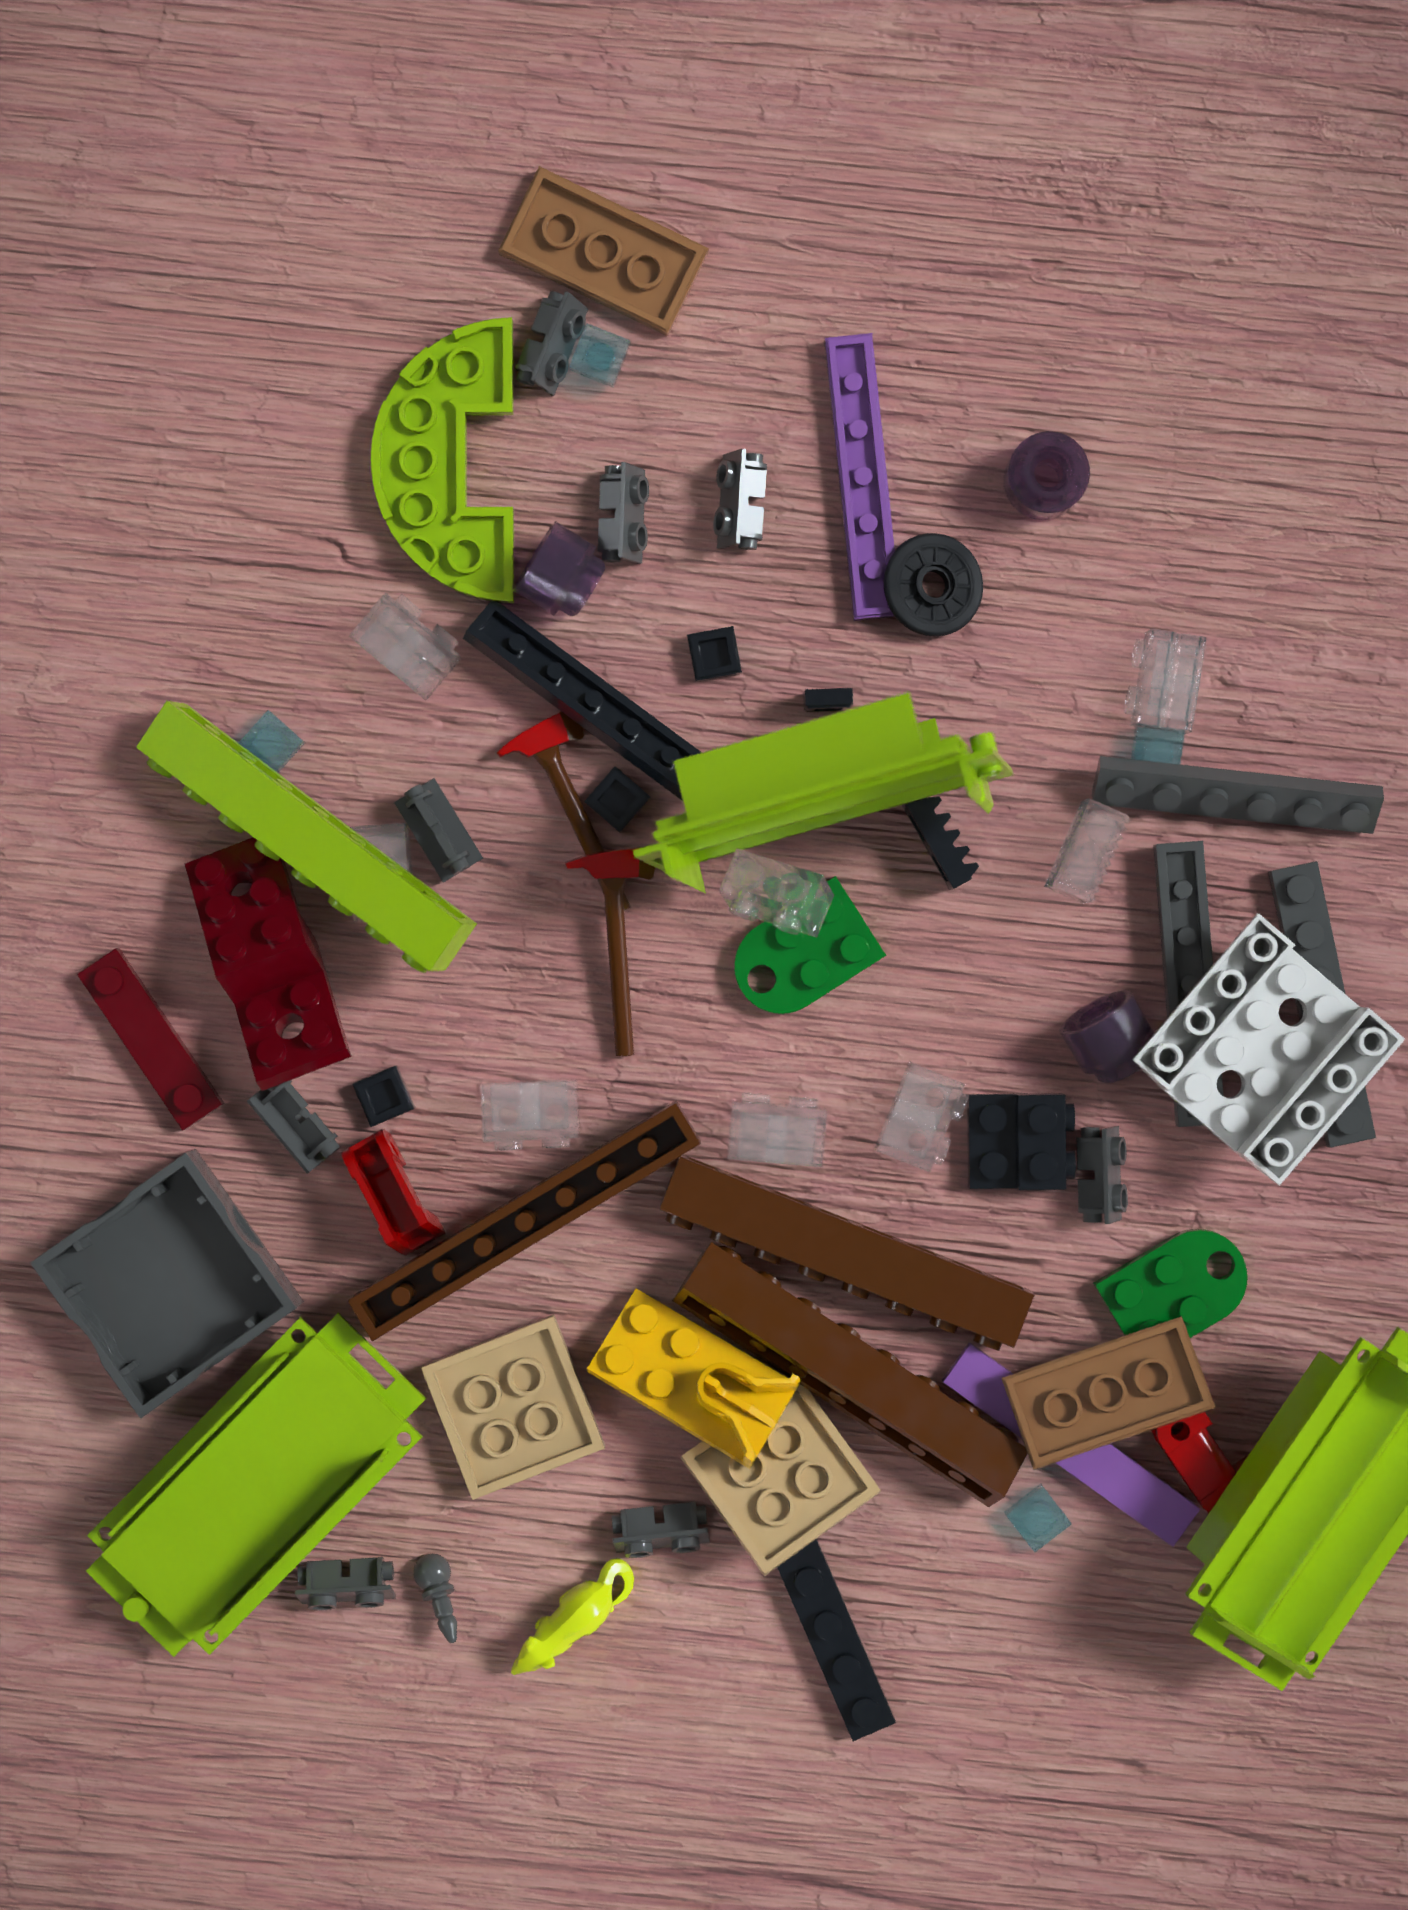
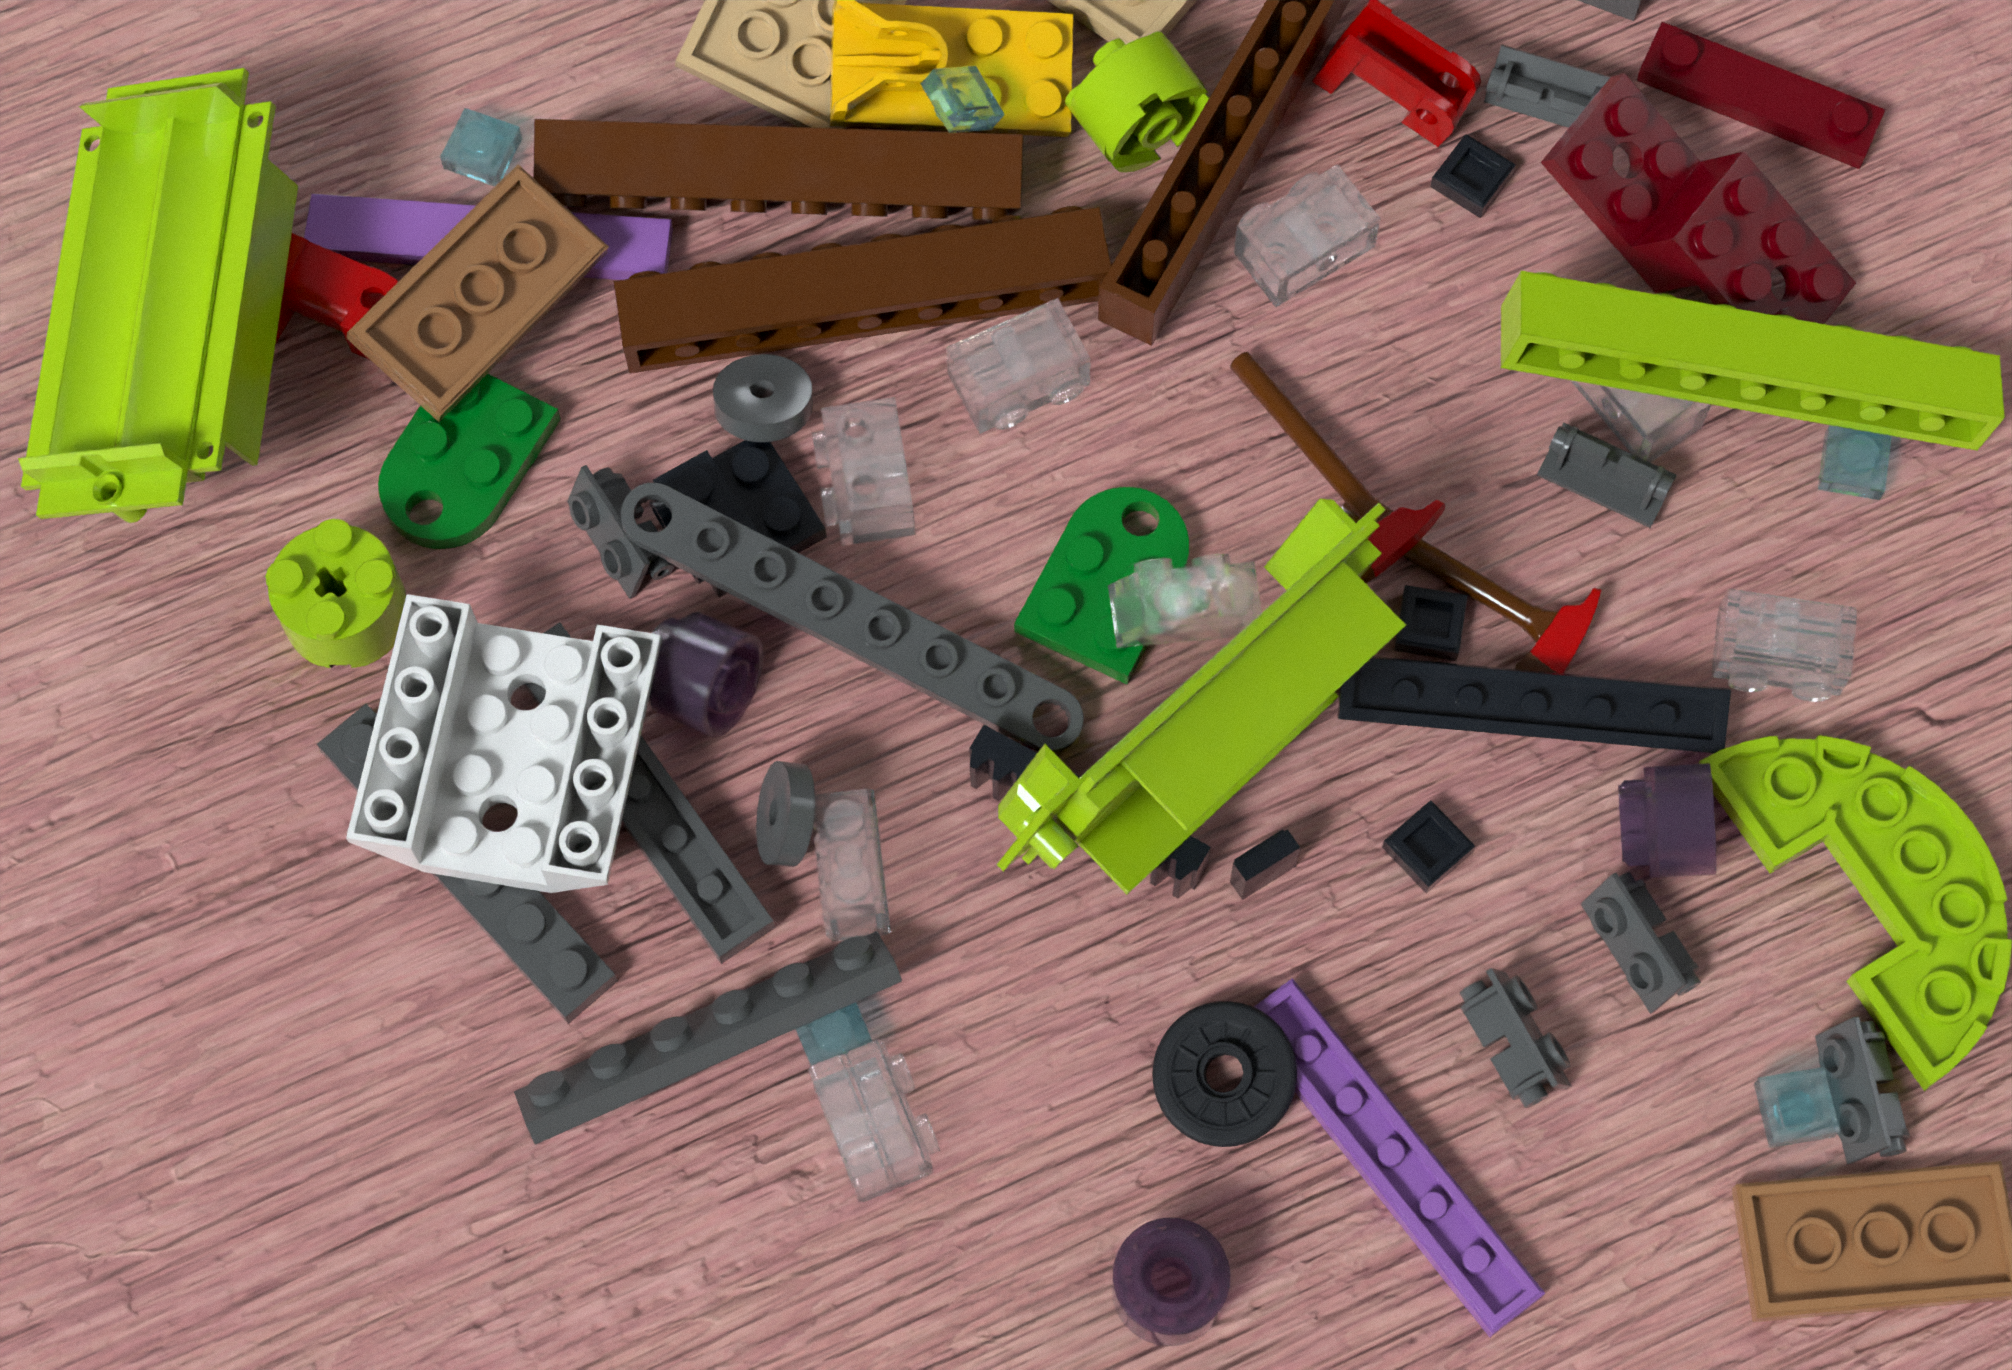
camera: 150 degrees right, 20 degrees down
(583, 1274) = (1137, 100): none -> lime brick
(709, 1336) = (962, 99): none -> clear light blue plate
(954, 1231) = (762, 398): none -> dark grey piece
(994, 1015) = (851, 617): none -> dark grey plate
(1110, 906) = (785, 814): none -> dark grey piece
(1334, 1245) = (306, 588): none -> lime brick

